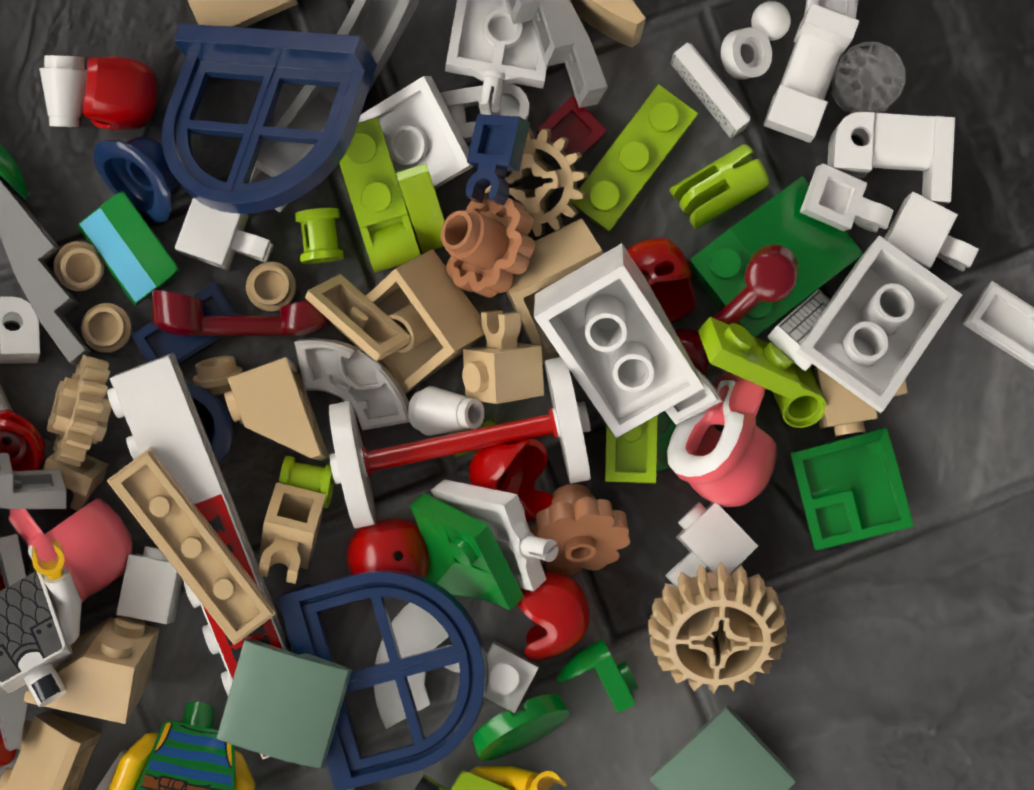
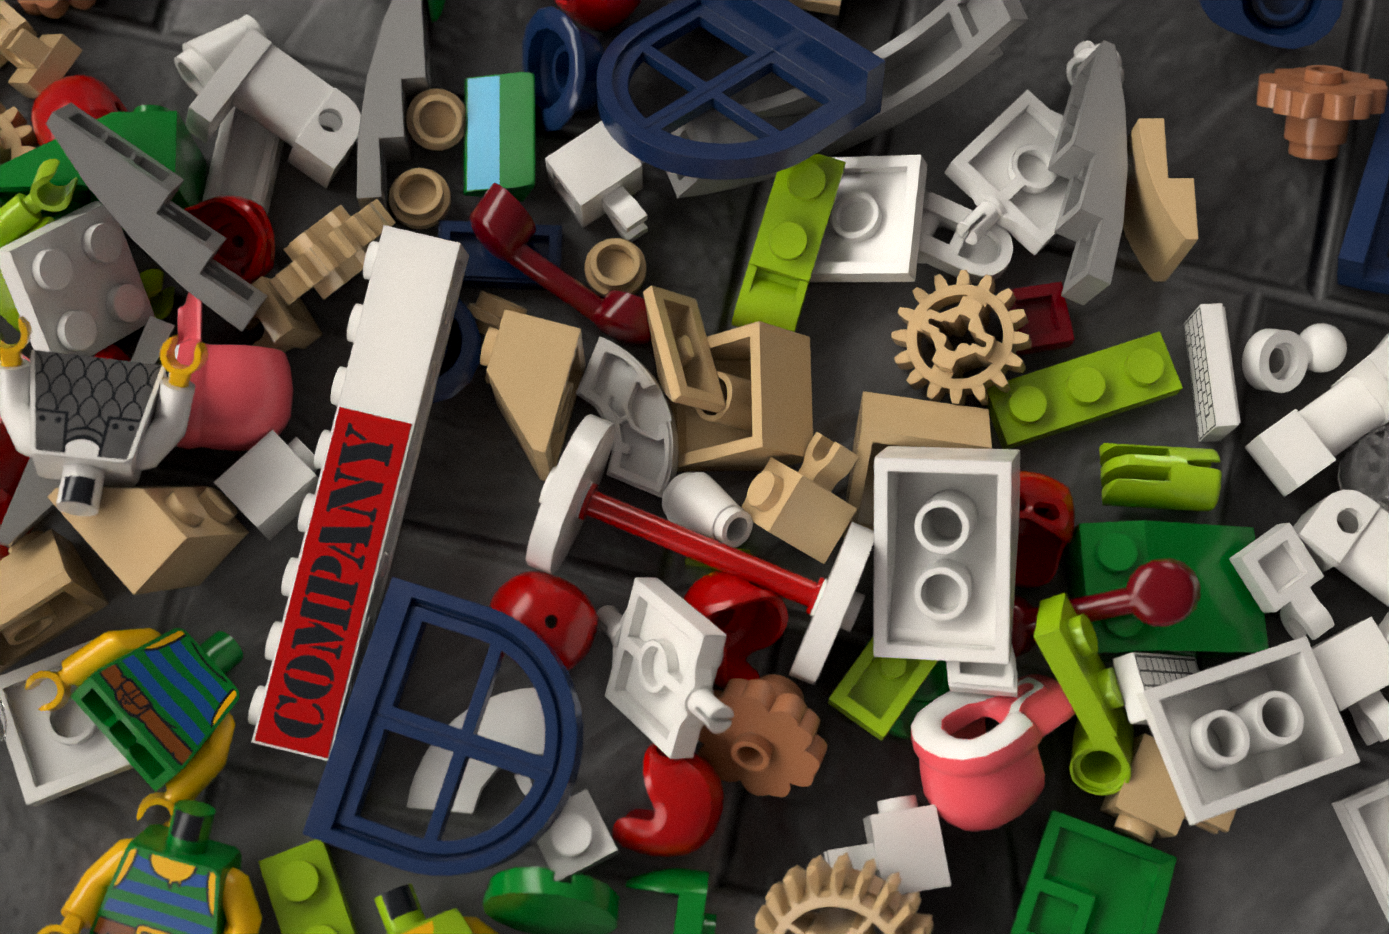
camera: 30 degrees right, 10 degrees down
(192, 546) = (341, 457): tan tile -> none
(284, 704) = (316, 694): sand green slope -> none
(290, 529) = (458, 520): tan brick -> none
(308, 477) = (508, 486): lime bush -> none
(319, 235) = (701, 249): lime bush -> none
(422, 206) = (830, 285): lime piece -> none
(464, 554) = (624, 669): green plate -> none
(487, 245) = (871, 363): nougat plant -> none
(494, 150) = (944, 273): dark blue plate -> none

